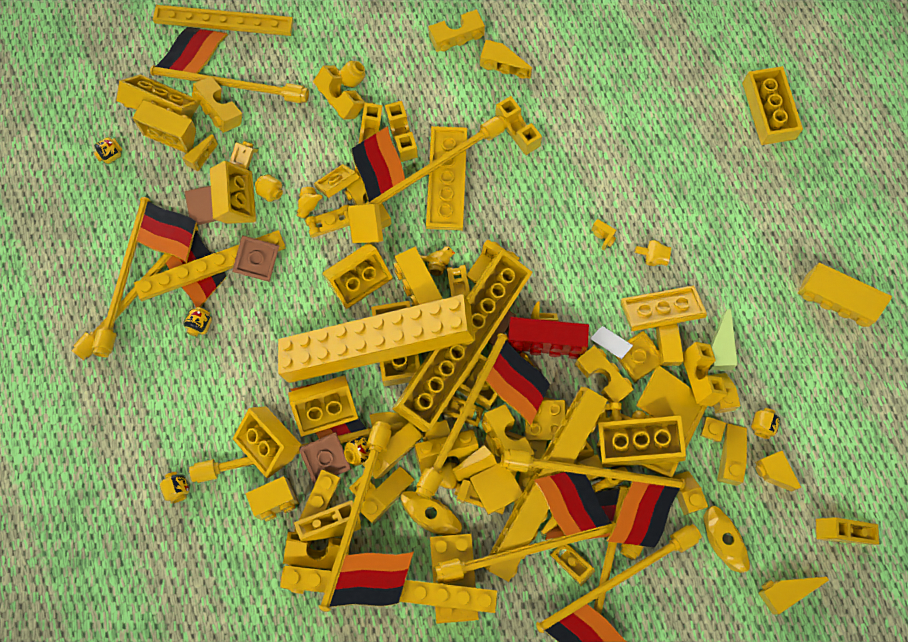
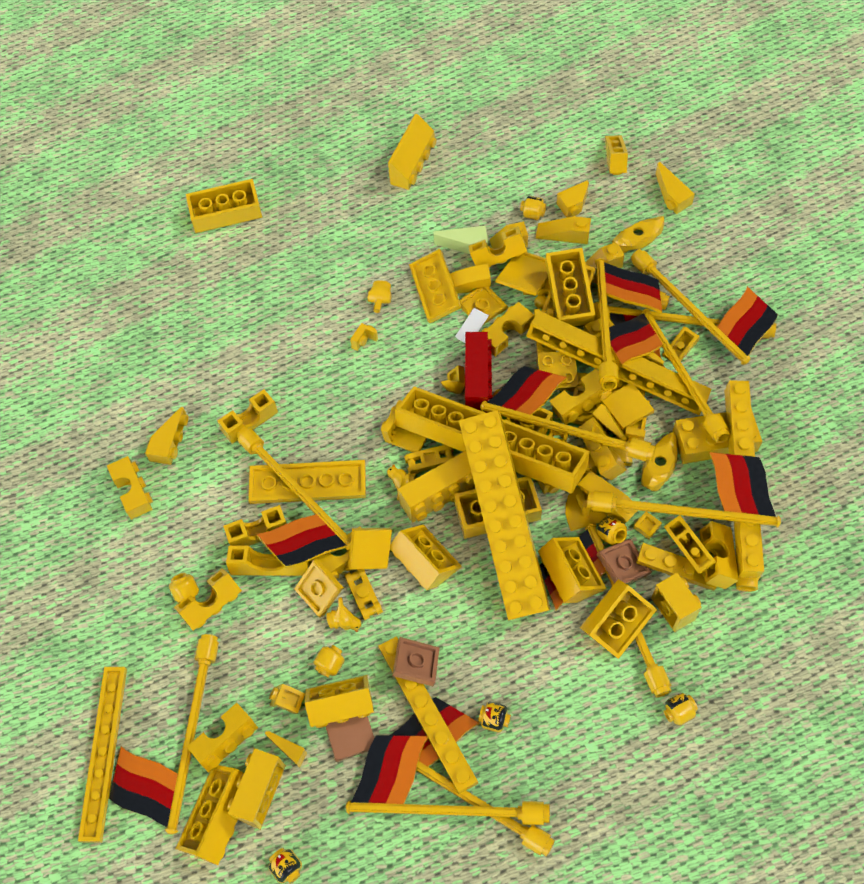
camera: 90 degrees left, 10 degrees down
(385, 495) = (642, 494): yellow slope -> none
(713, 429) = (542, 246): yellow plate -> none

